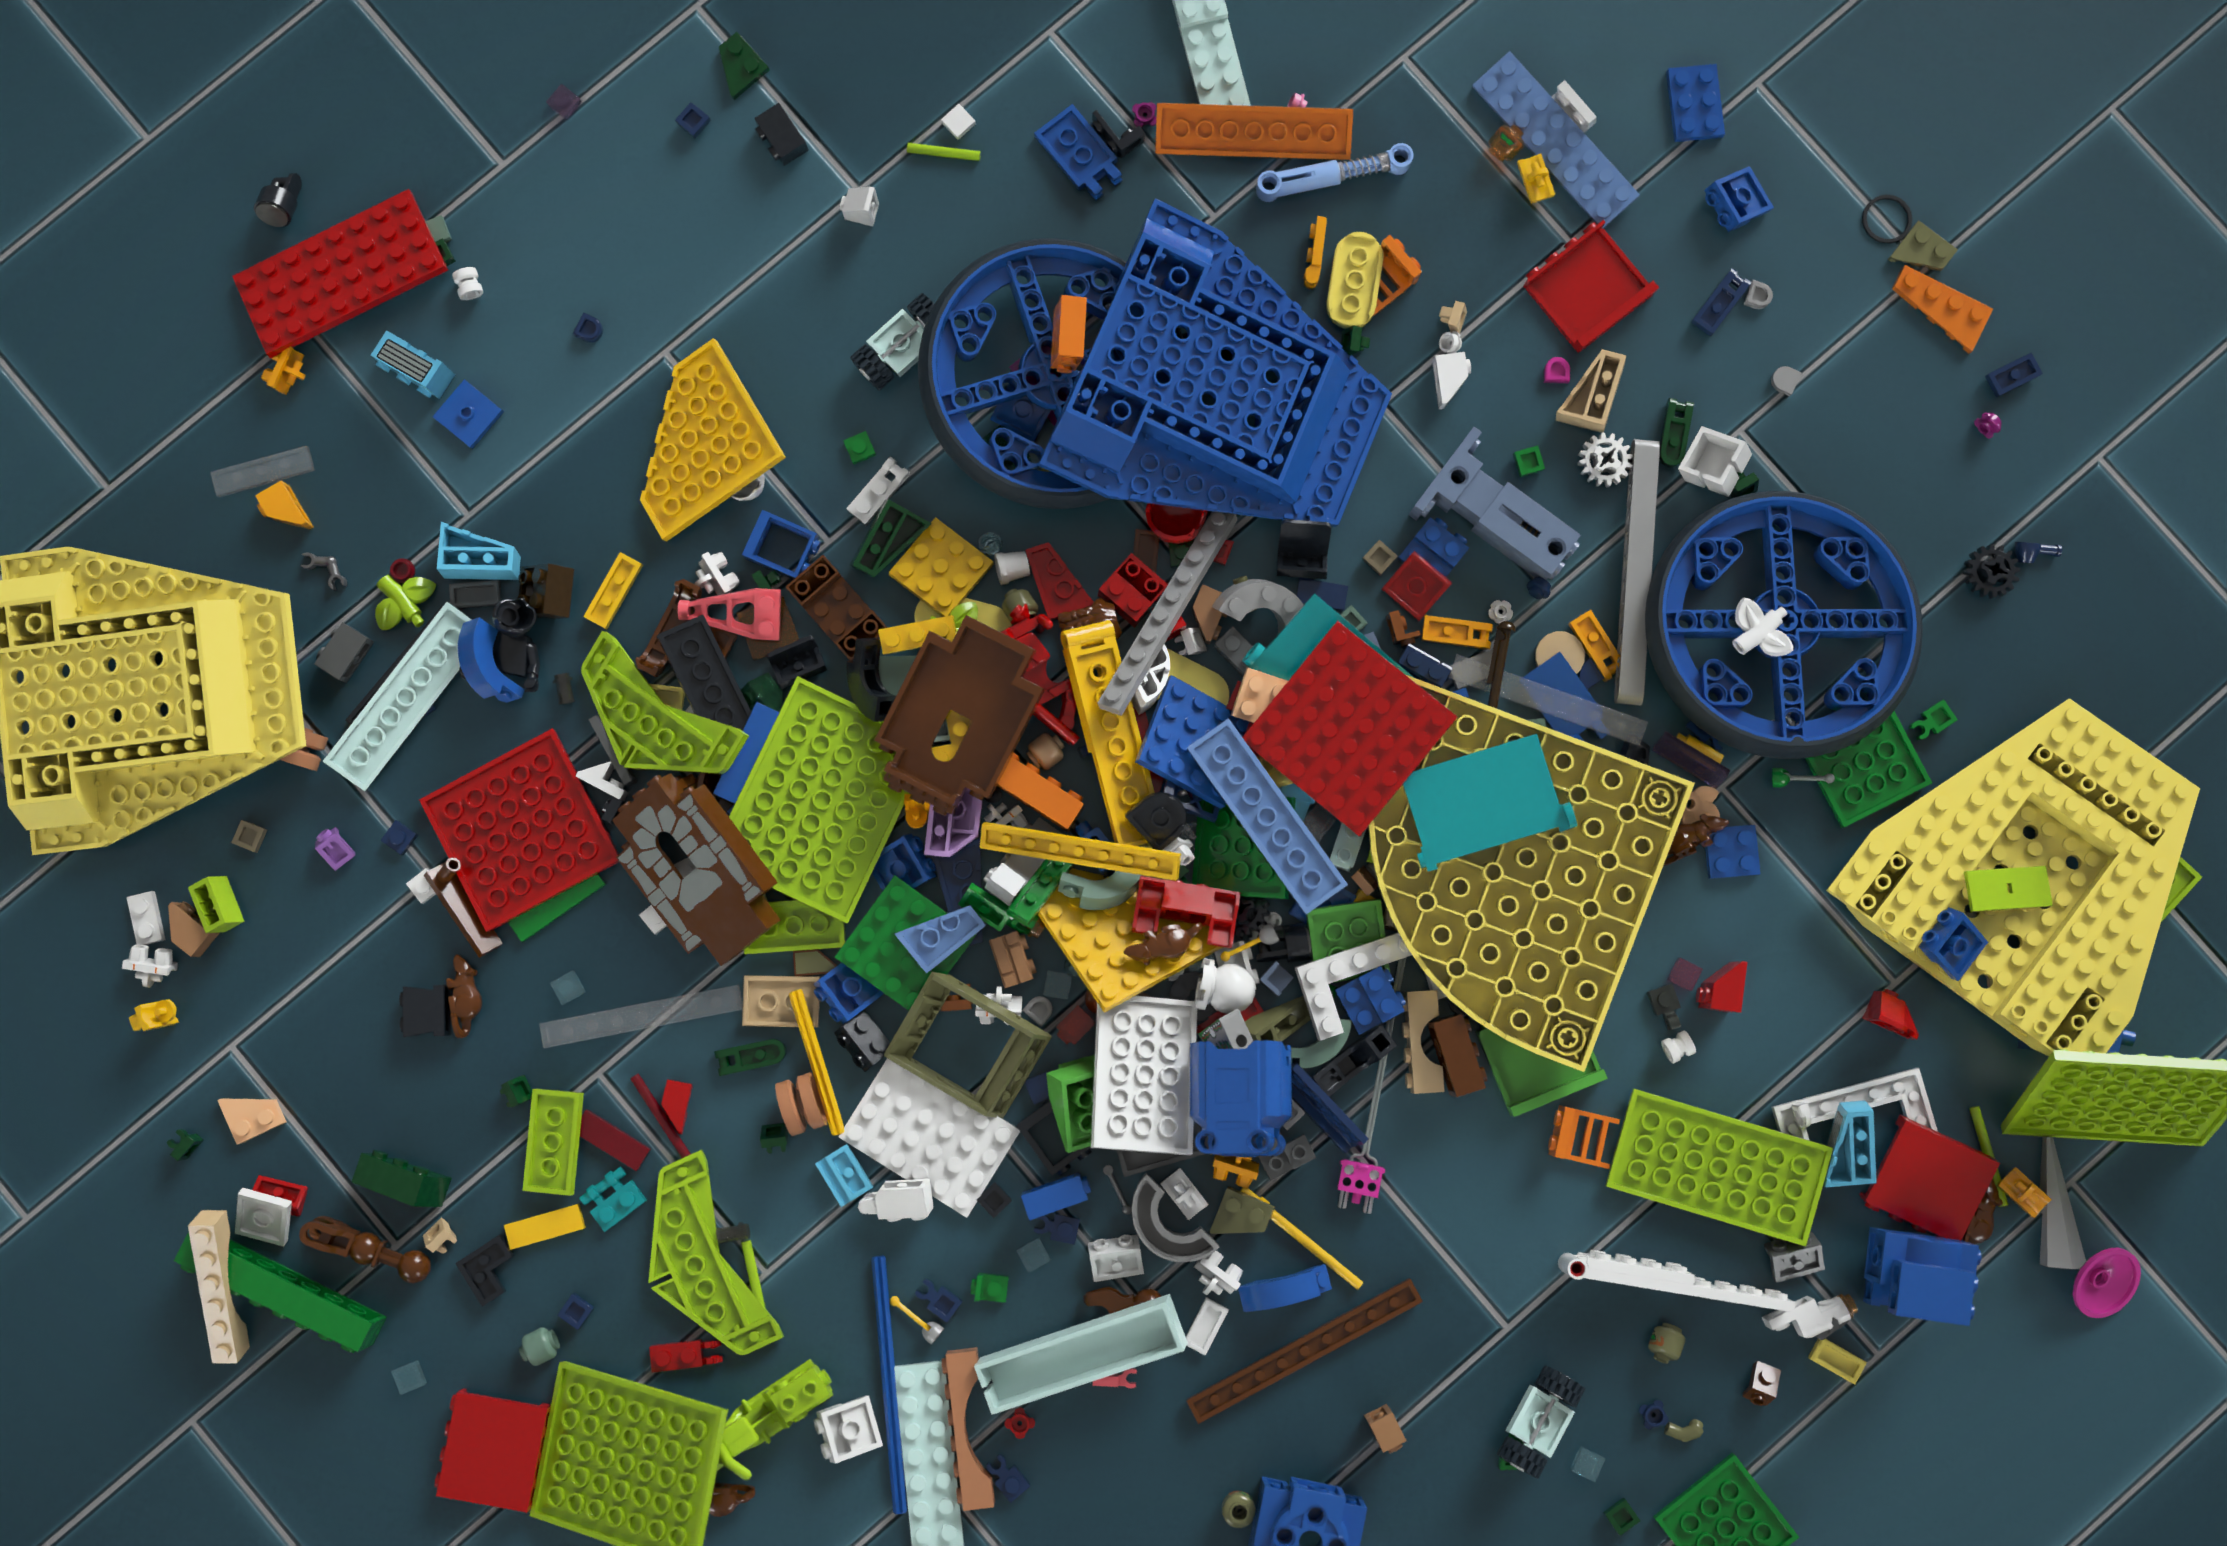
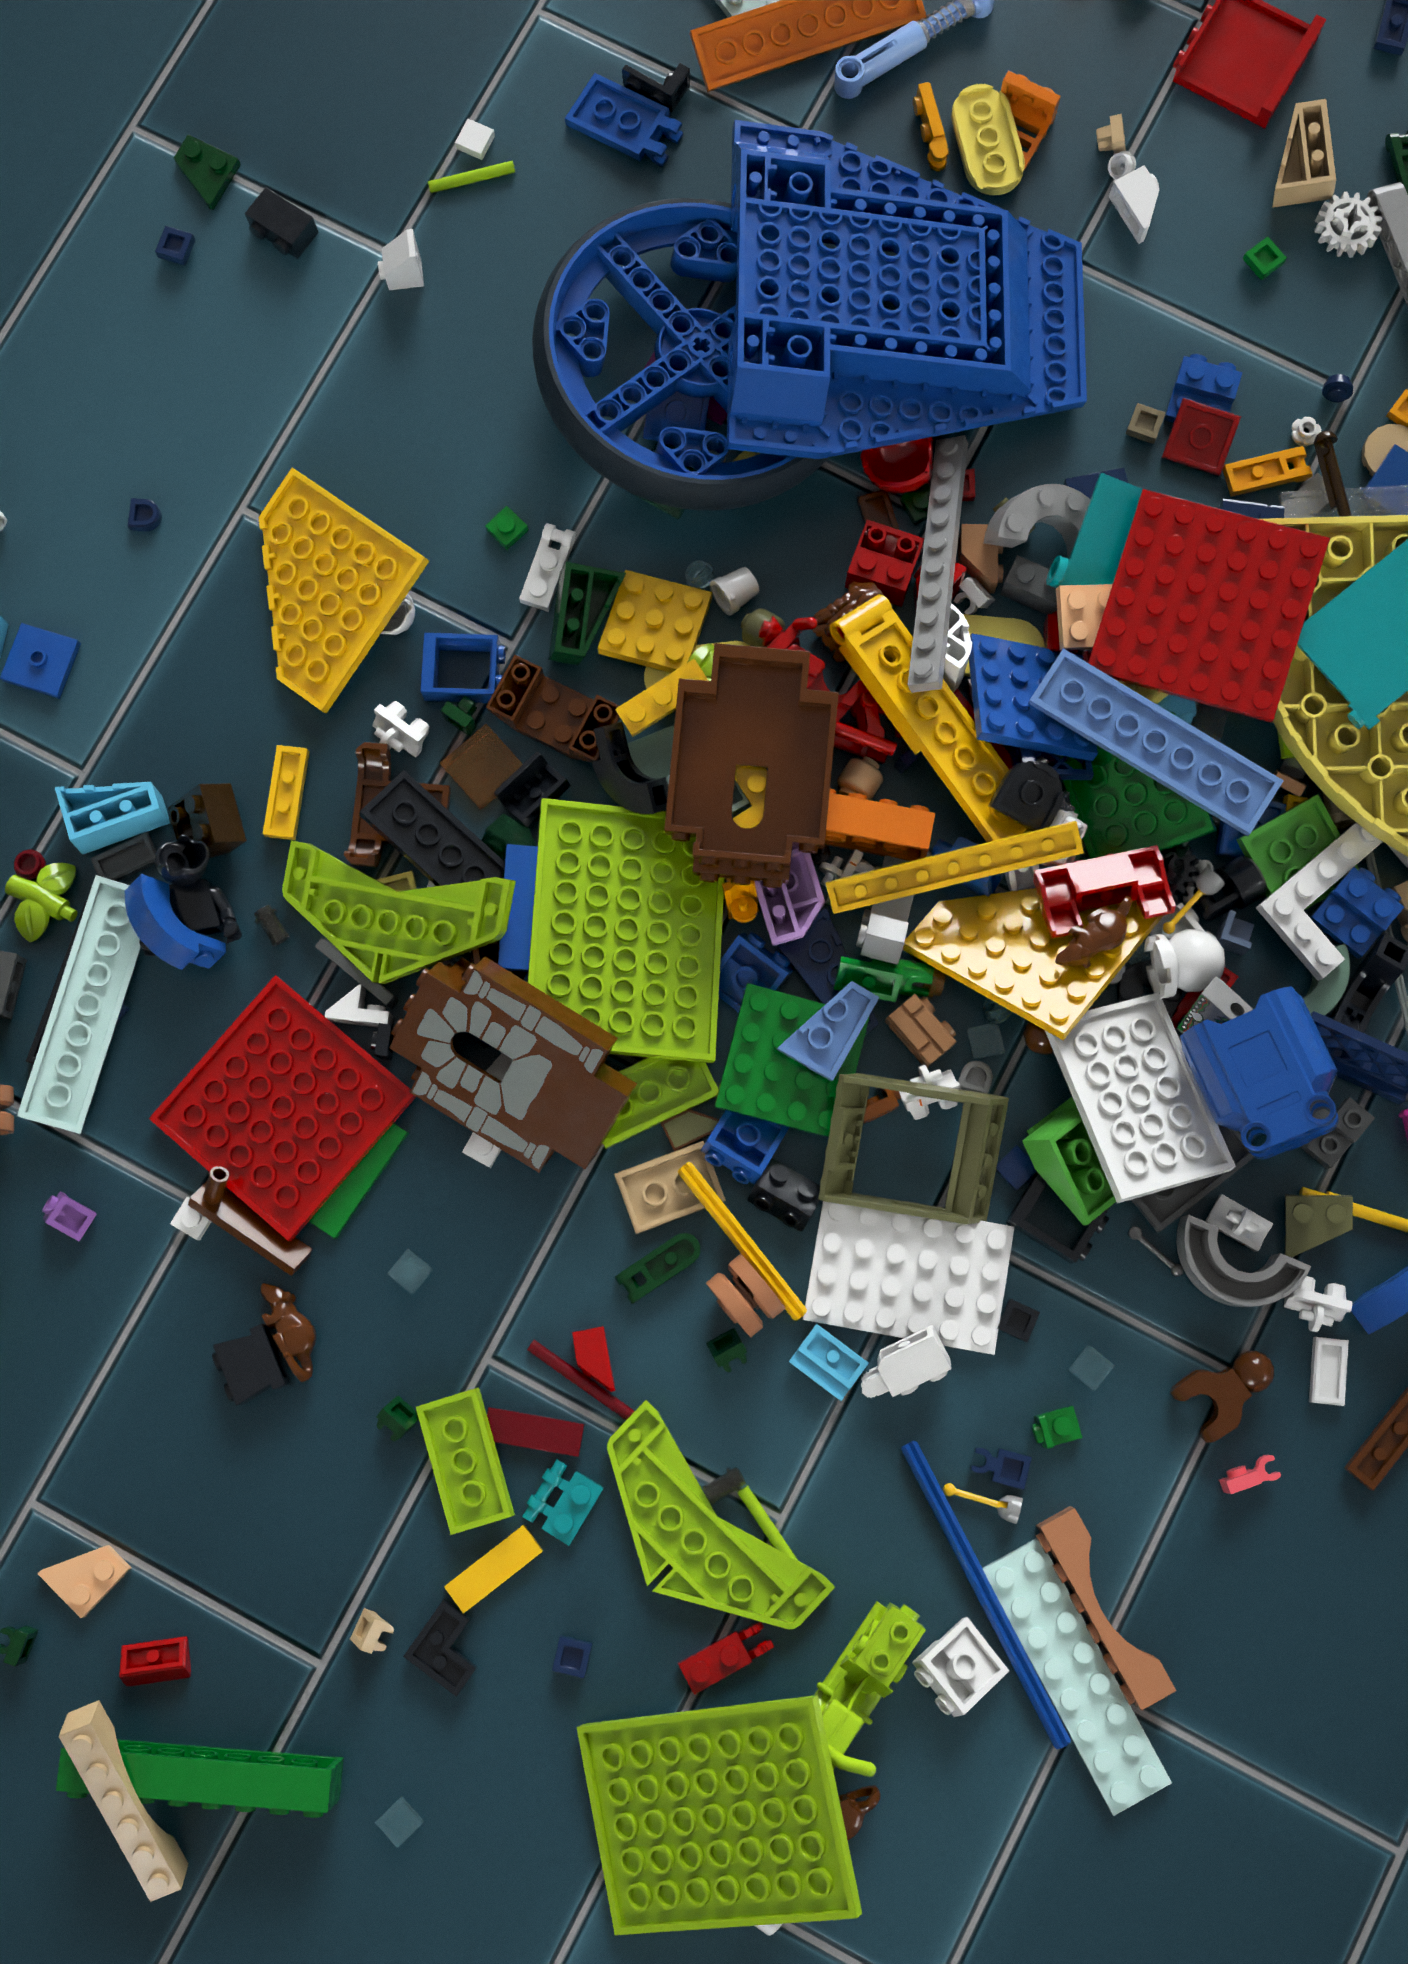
camera: 15 degrees left, 5 degrees down
(263, 1217) = (146, 1694): white plate -> none
(363, 1248) = (286, 1682): reddish brown piece -> none
(399, 837) = (141, 1173): dark blue plate -> none
(401, 1180) = (298, 1580): dark green wedge -> none
(492, 1451) = (538, 1872): red panel -> none
(539, 1346) = (544, 1718): sand green head -> none
(564, 102) = (20, 281): clear purple plate -> none
(641, 1016) = (510, 1271): clear tile -> none
(766, 612) = (475, 746): coral plate -> none
(895, 344) = (503, 396): plate -> none
(1010, 1481) = (1177, 1651): dark blue plate -> none
(1019, 1430) = (1169, 1573): red plate -> none
(1037, 891) = (922, 933): green tile -> none
(1055, 582) = (789, 587): red wing -> none
(1056, 1195) = (1091, 1283): blue window -> none
(1062, 1228) = (1110, 1322): dark blue plate -> none
(1068, 333) = (701, 291): orange brick -> none
(1075, 1025) = (1029, 1075): clear red brick -> none
(1081, 1354) = (1203, 1460): light aqua piece -> none
(1099, 893) = (993, 911): sand green arch -> none
(1115, 1257) = (1190, 1331): white bracket -> none
(1140, 109) = (679, 47): magenta plate -> none
(1243, 1166) = (1297, 1167): light orange hips -> none
(1279, 1021) = (1264, 974): olive slope -> none
(1303, 549) = (1057, 442): black bracket -> none
(1346, 848) = (1251, 739): light aqua window -> none
(1353, 341) = (1014, 200): dark green tile -> none
(1397, 627) = (1199, 489): dark orange bracket -> none
(1499, 513) = (1262, 322): sand blue brick -> none
(1557, 371) = (1251, 154): dark pink tile -> none

